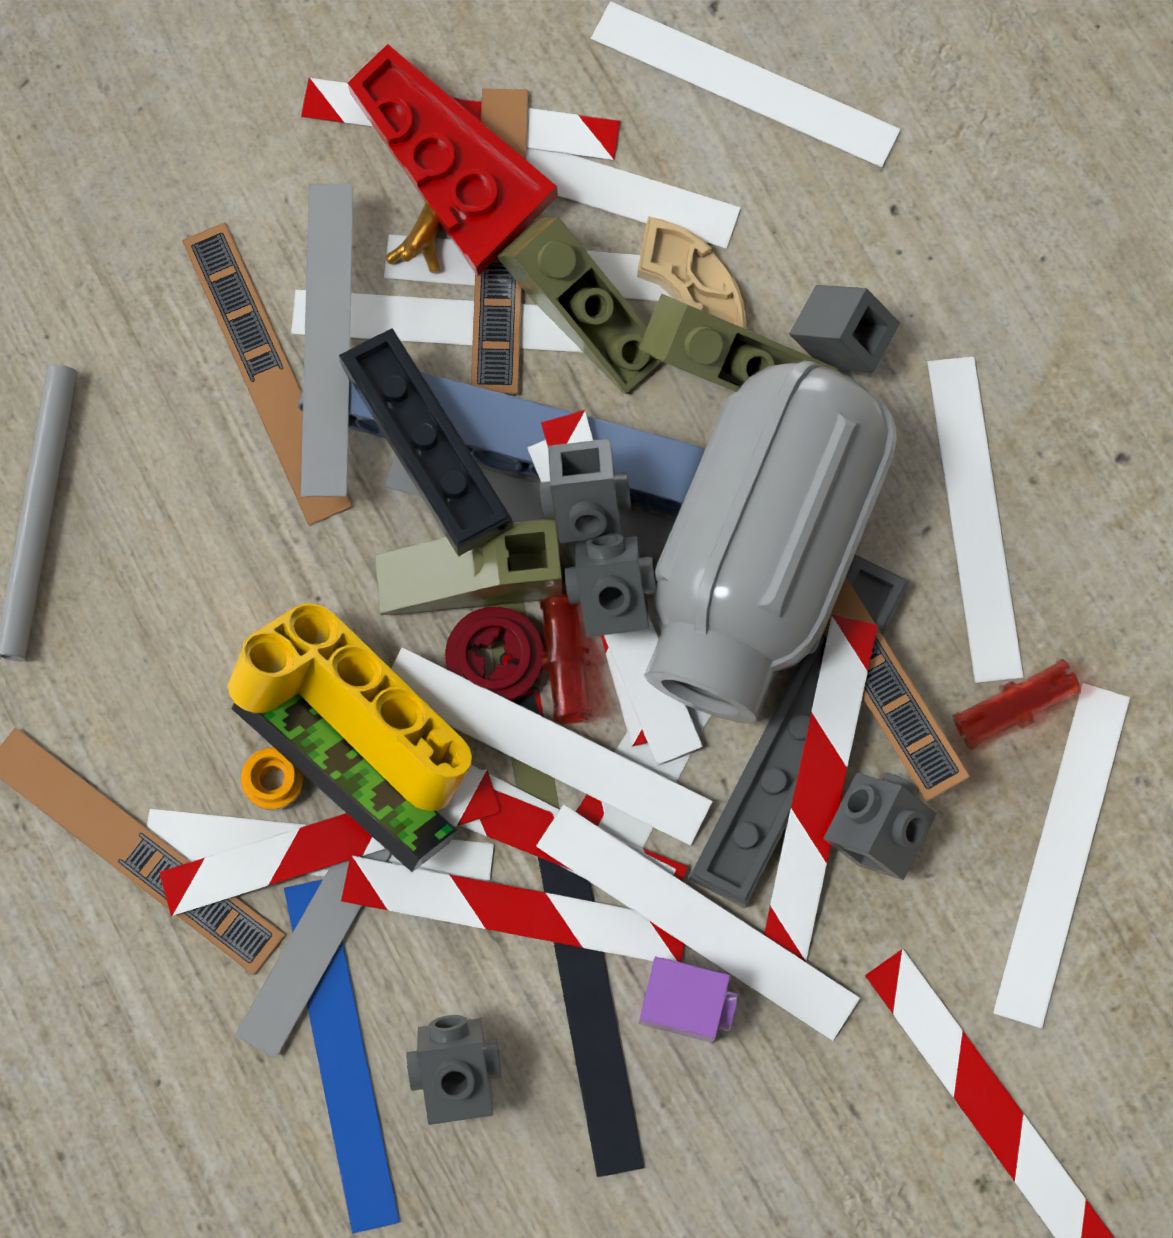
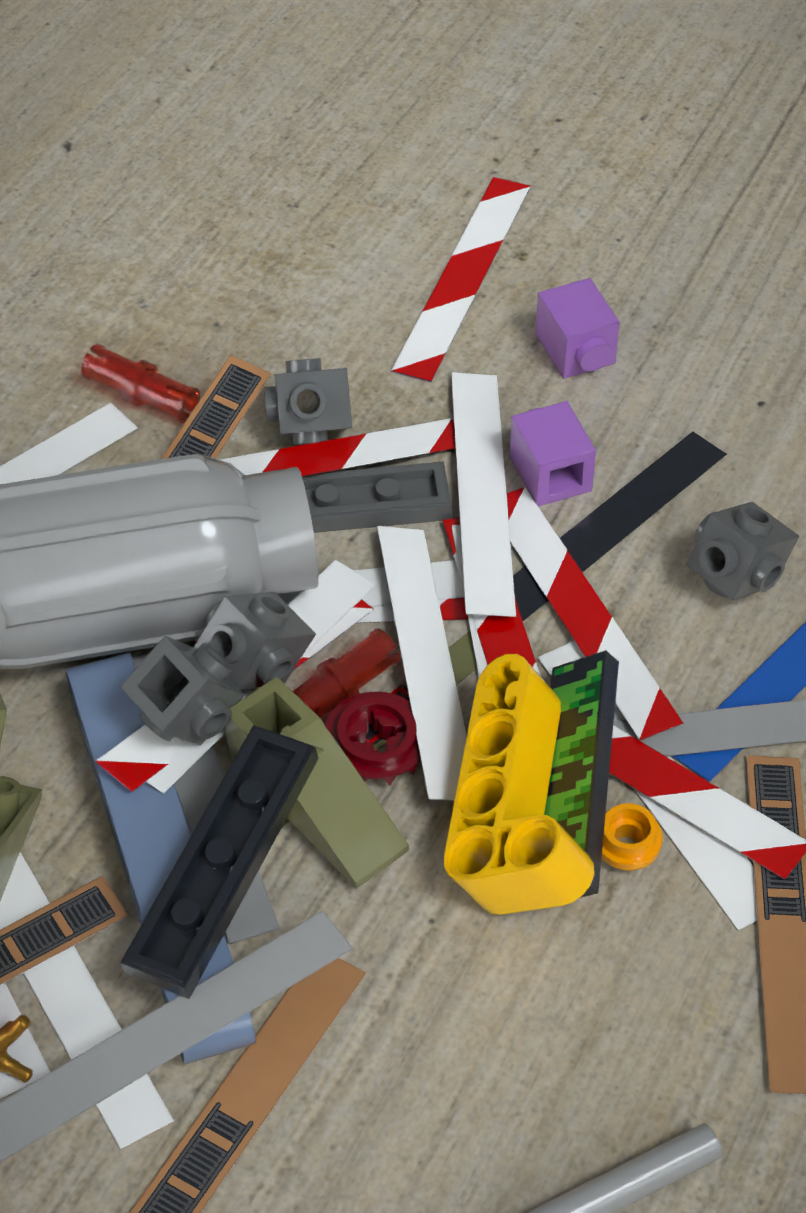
camera: 125 degrees left, 25 degrees down
(821, 1139) = (577, 328): none -> medium lavender brick
(1061, 856) = (242, 318): white sticker -> none

